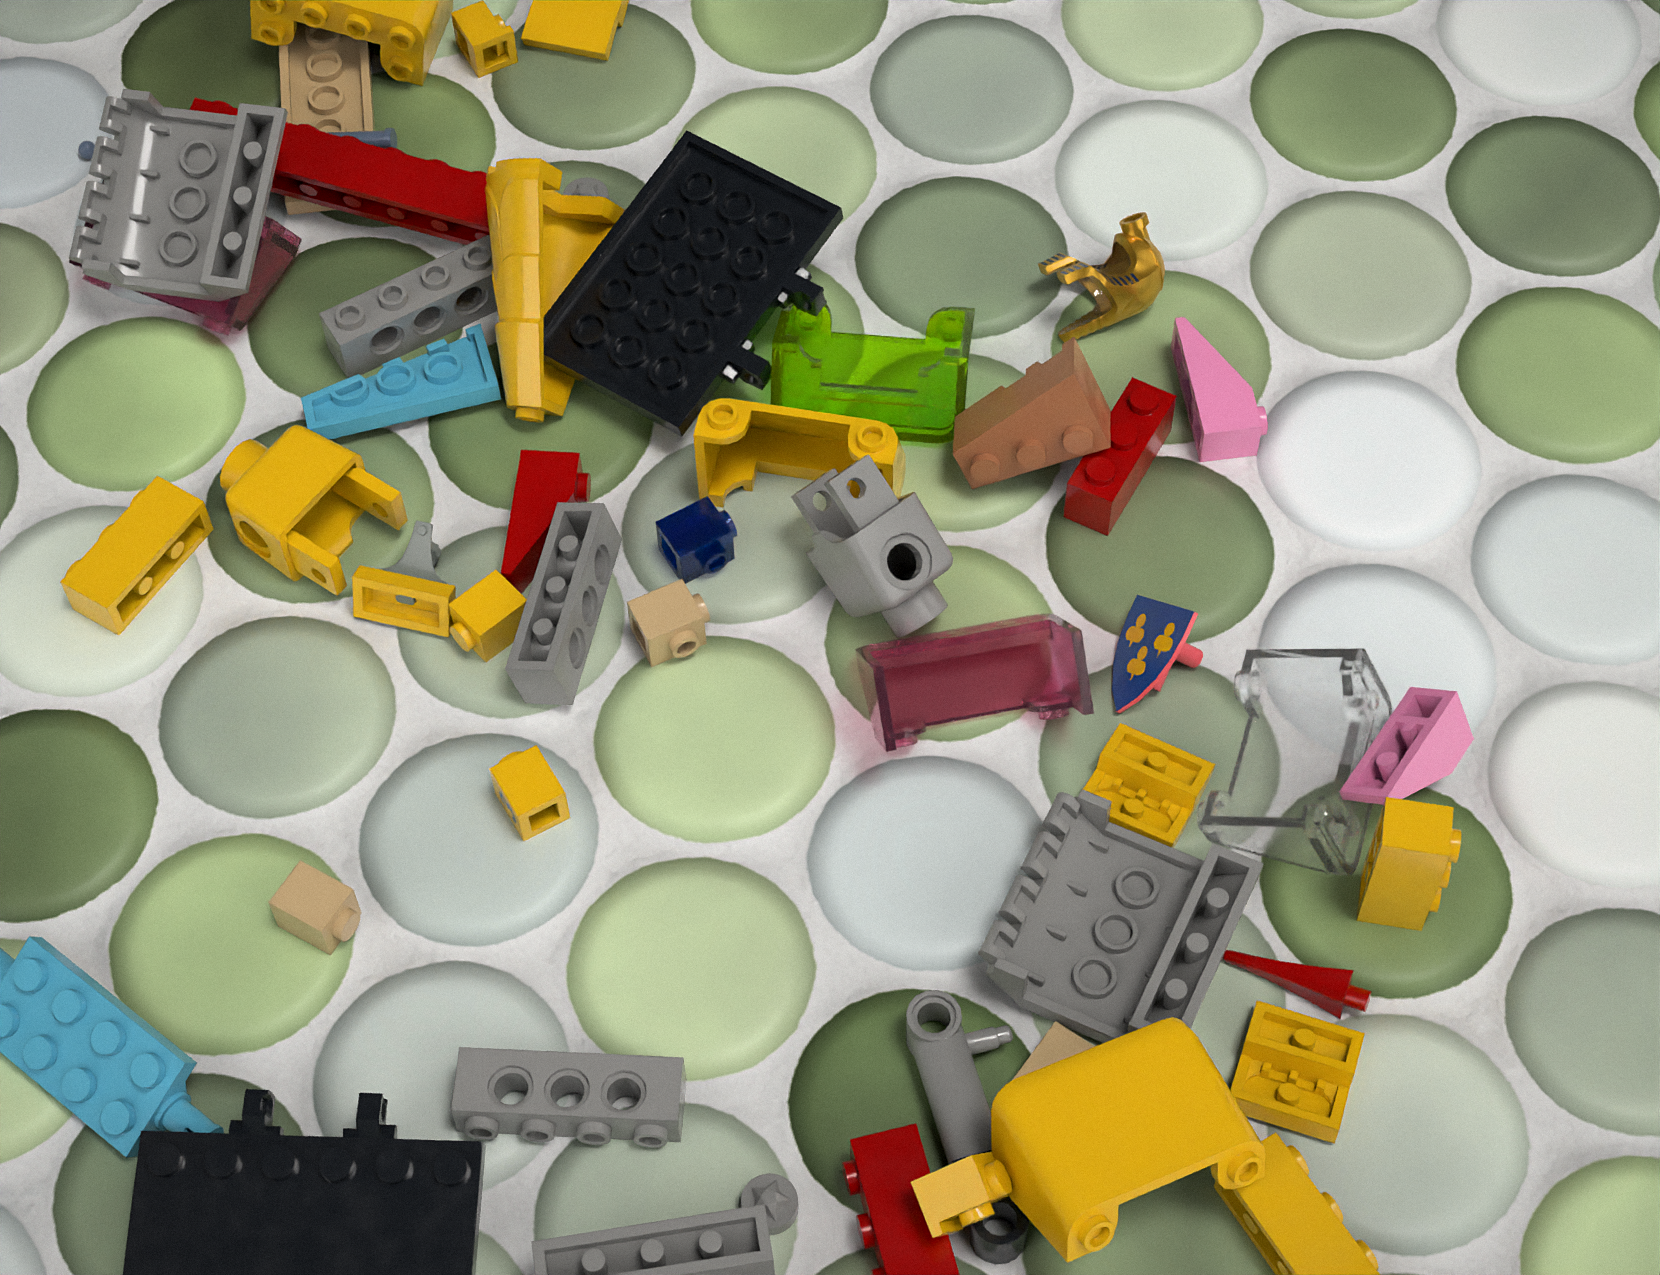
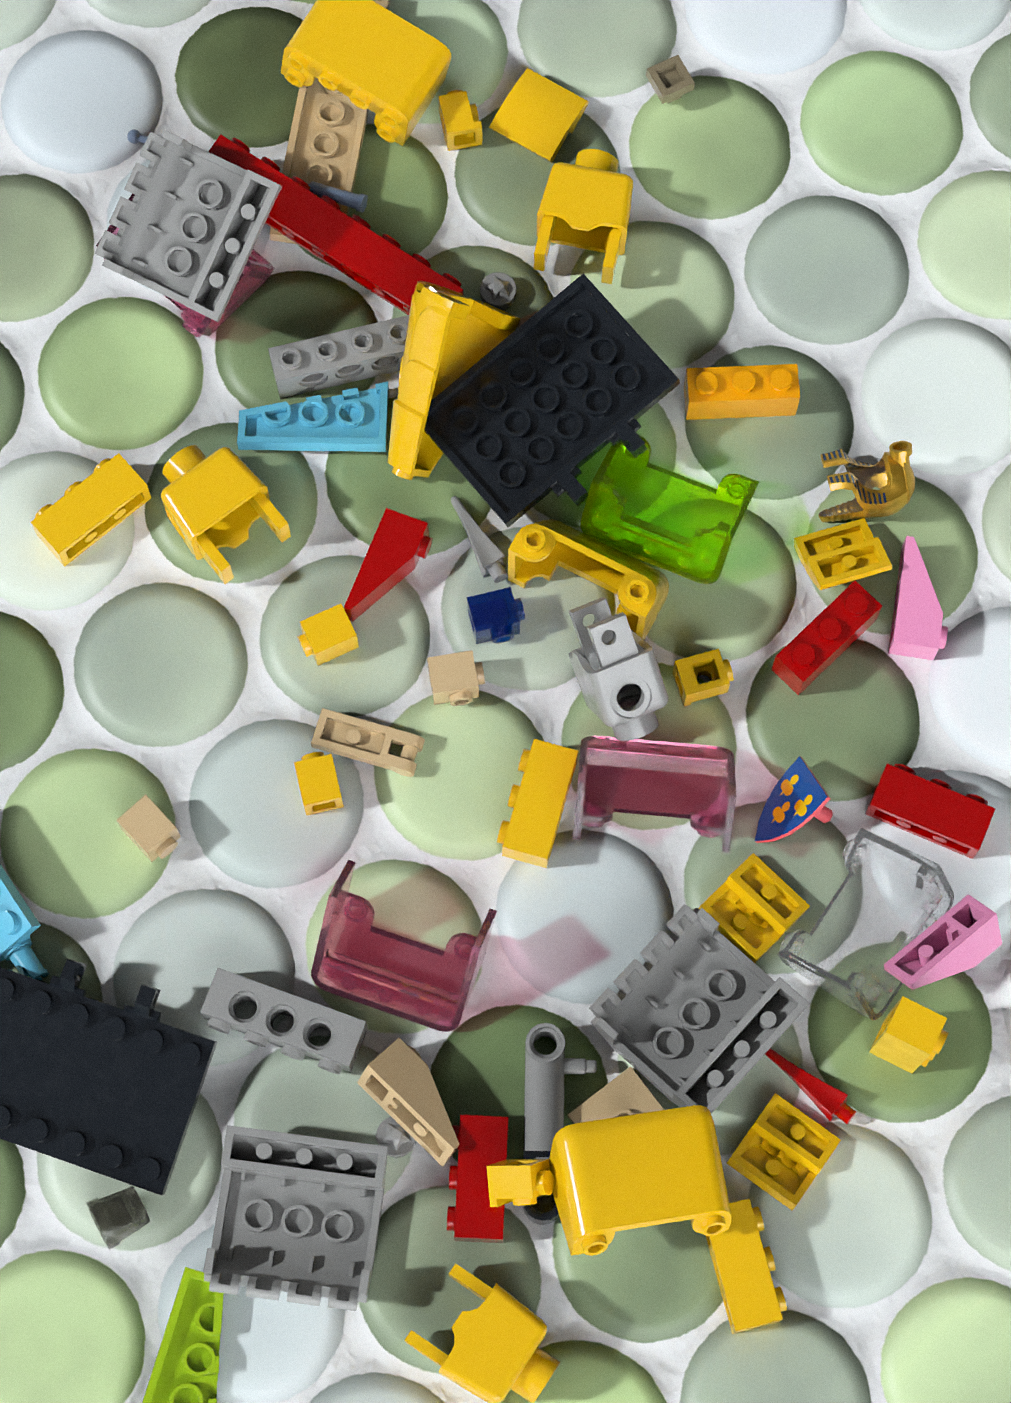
camera: 15 degrees right, 15 degrees up
(408, 591) = (276, 595): yellow piece -> none
(564, 604) = (383, 642): light grey brick -> none
(579, 727) = (366, 742): none -> tan plate
(662, 475) = (486, 552): none -> light grey piece
(665, 83) = (585, 209): none -> yellow piece
(697, 995) = (393, 970): none -> clear pink windscreen
(776, 1141) = (409, 1095): none -> tan slope
(824, 738) = (538, 802): none -> yellow brick
(918, 225) = (741, 391): none -> light orange brick
(982, 538) = (708, 664): none -> yellow brick
(1034, 422) = (767, 601): nougat wedge -> none
(1120, 354) = (841, 554): none -> yellow slope
(1322, 612) = (931, 810): none -> red brick

